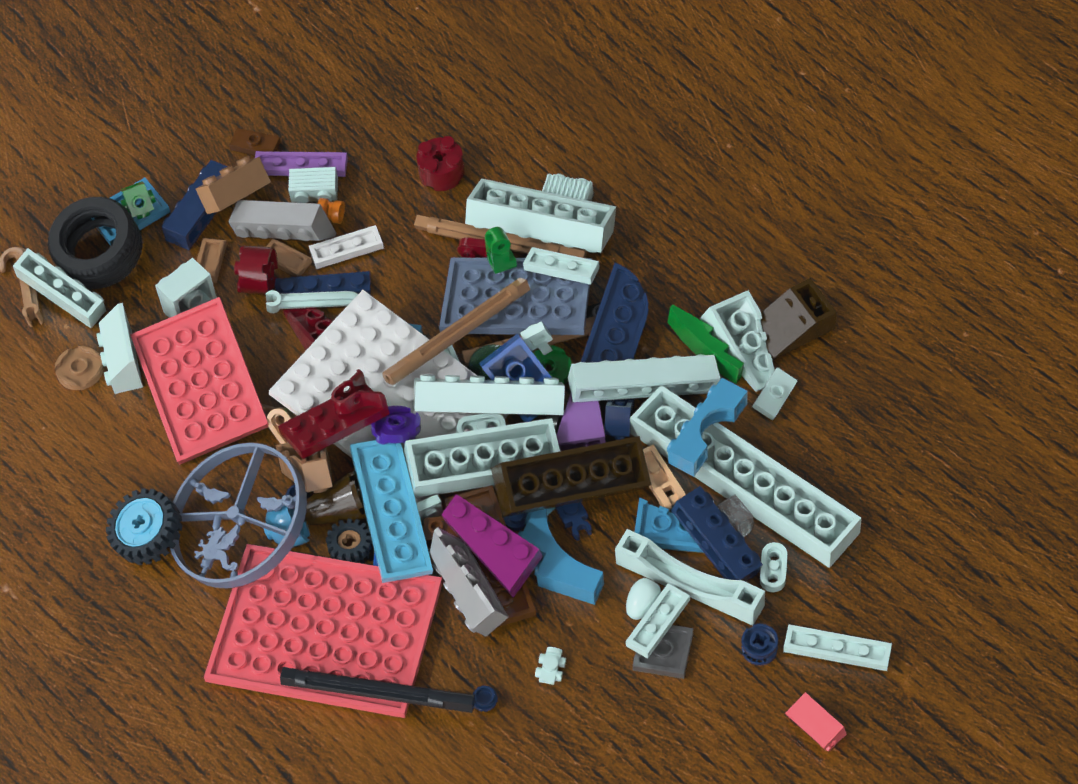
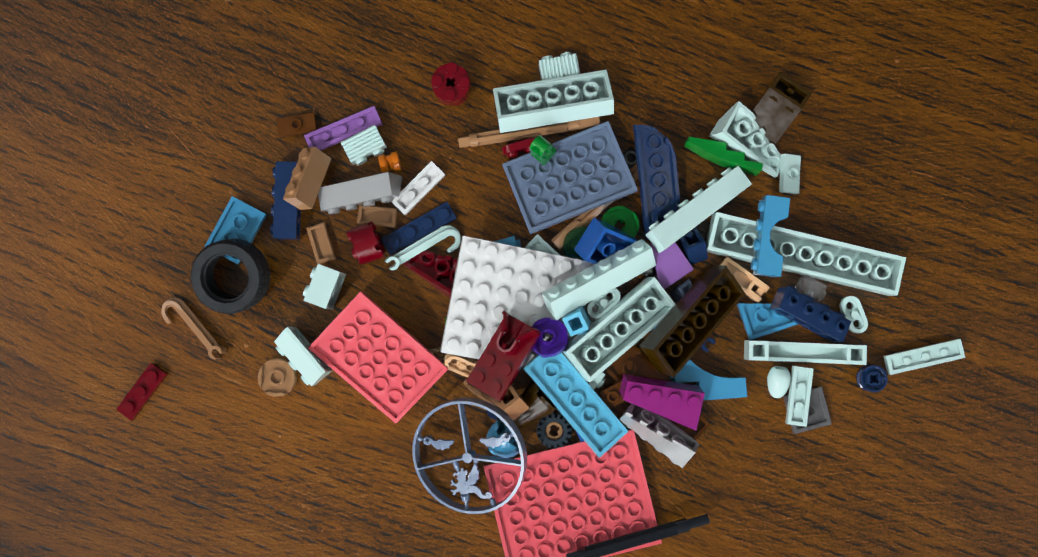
camera: 30 degrees left, 30 degrees up
(59, 287) = (226, 327): light aqua brick -> none
(135, 192) = (241, 225): brick -> none
(144, 526) = (410, 499): wheel -> none
(437, 421) = (577, 321): none -> medium azure brick
(456, 331) = (548, 237): medium nougat piece -> none
(485, 698) = (707, 503): dark blue plate -> none
(537, 337) = (609, 213): light aqua plate -> none
(551, 662) = (740, 462): light aqua piece -> none
(561, 265) = (593, 141): light aqua plate -> none
(816, 722) = (936, 420): coral hinge -> none

